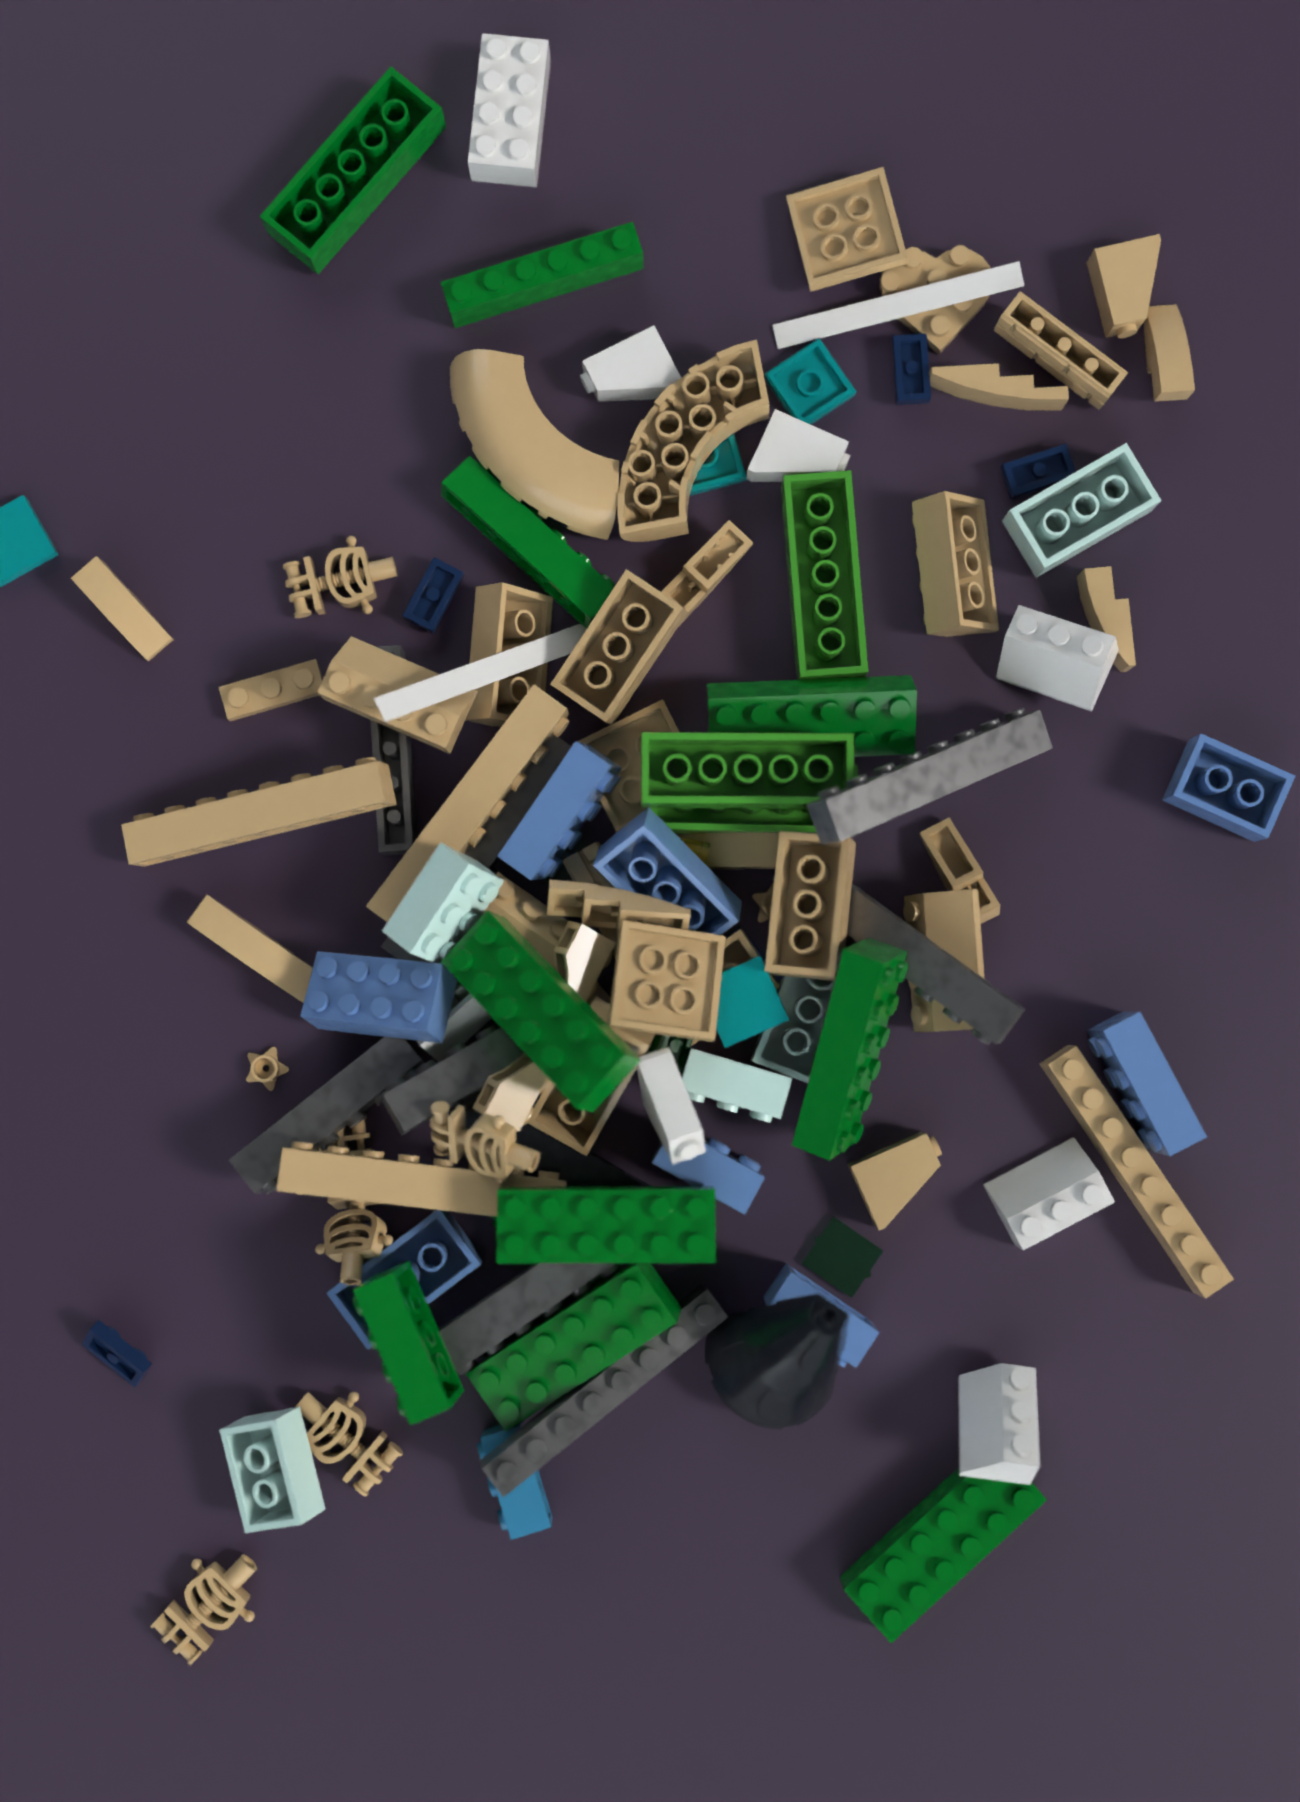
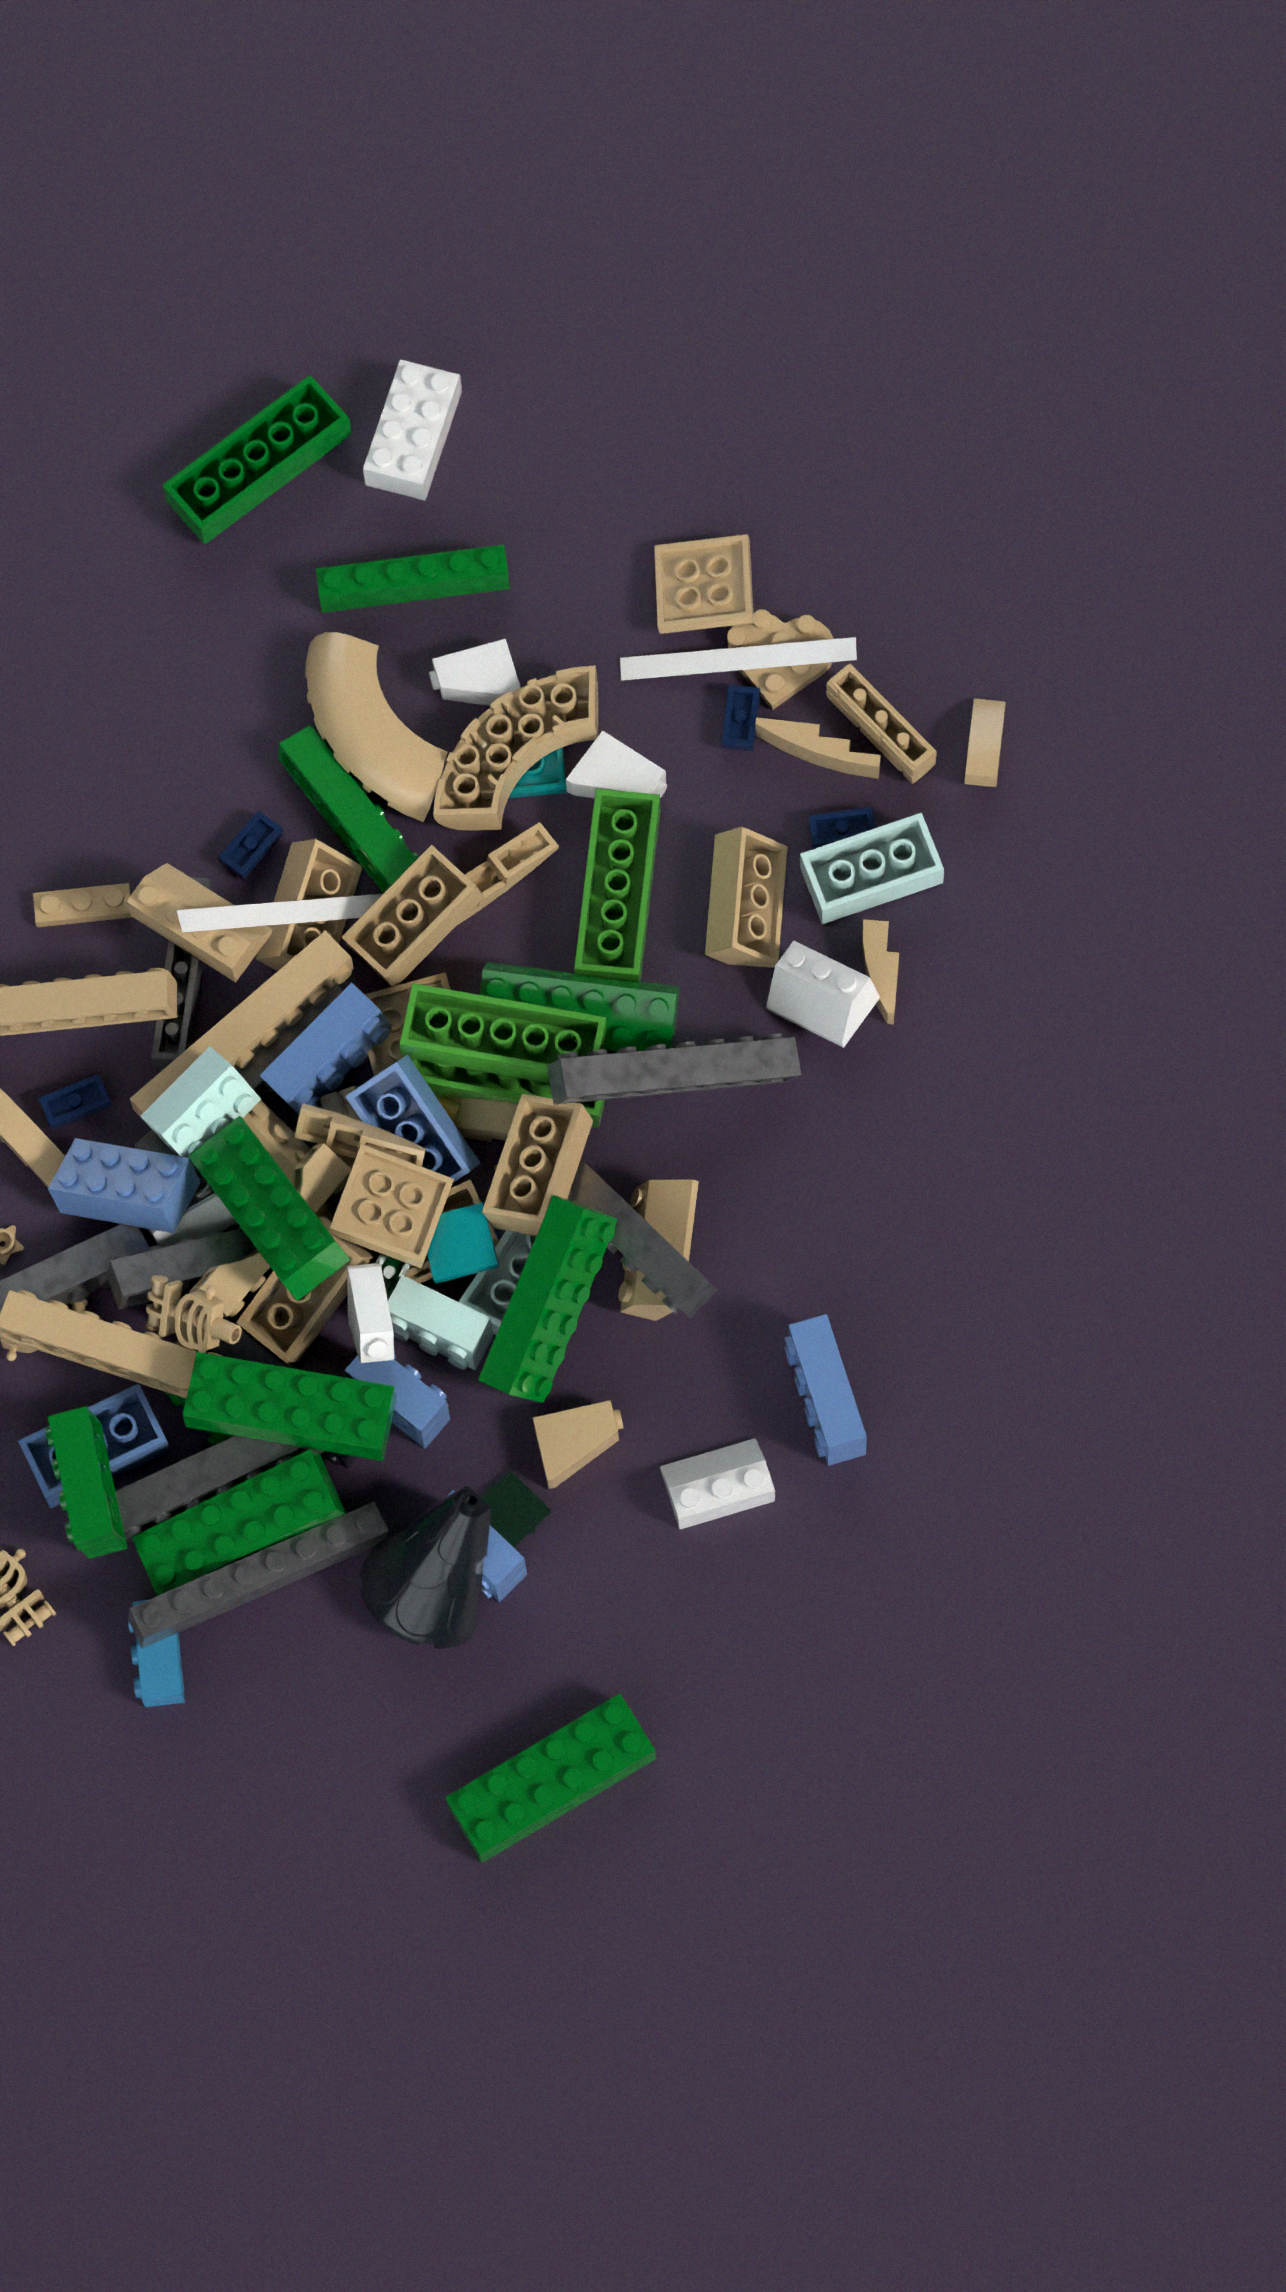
camera: 15 degrees right, 15 degrees down
(309, 905) = (75, 1101): none -> dark blue plate
(345, 1238) = (55, 1390): tan torso -> none
(371, 572) = (197, 815): tan torso -> none
(810, 383) = (644, 715): teal tile -> none
(958, 866) = (691, 1164): tan slope -> none
(999, 1424) = (624, 1670): white slope -> none
(1123, 283) = (957, 673): tan slope -> none
(1136, 1171) = (804, 1473): tan brick -> none
(1228, 788) = (961, 1139): medium blue brick -> none

